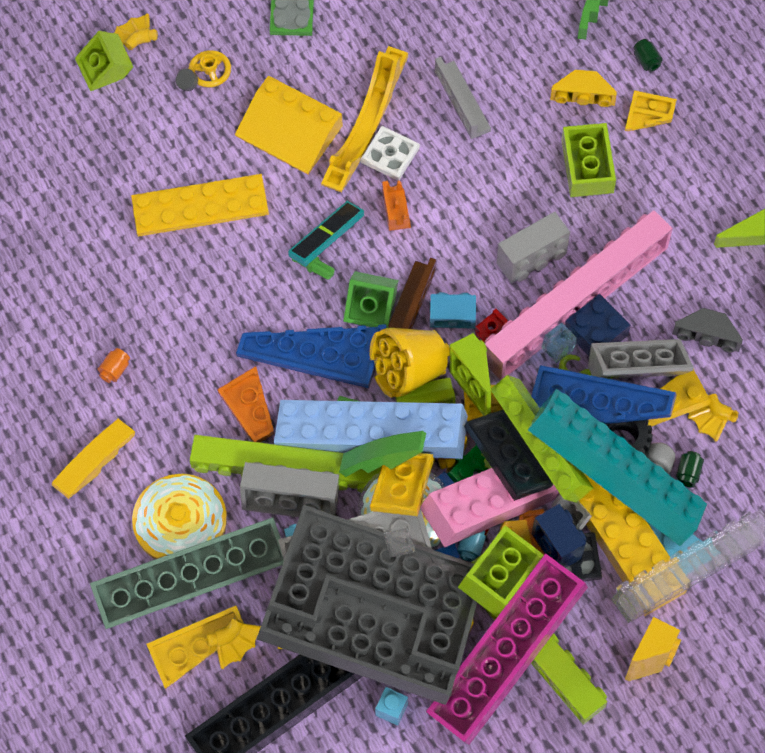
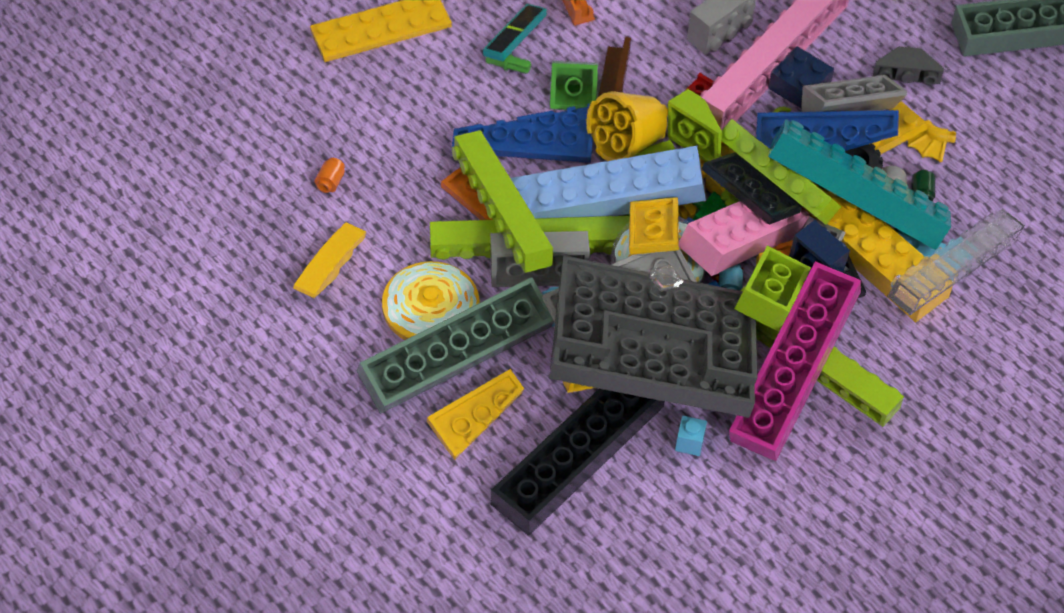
camera: 15 degrees left, 10 degrees down
(233, 641) = (515, 401): yellow arm -> none
(264, 430) = (503, 202): none -> lime brick
(384, 451) = (634, 198): bright green slope -> none
(453, 310) = (657, 81): dark azure brick -> none
(559, 342) = (768, 94): clear light blue brick -> none
(655, 650) = (939, 340): yellow slope -> none

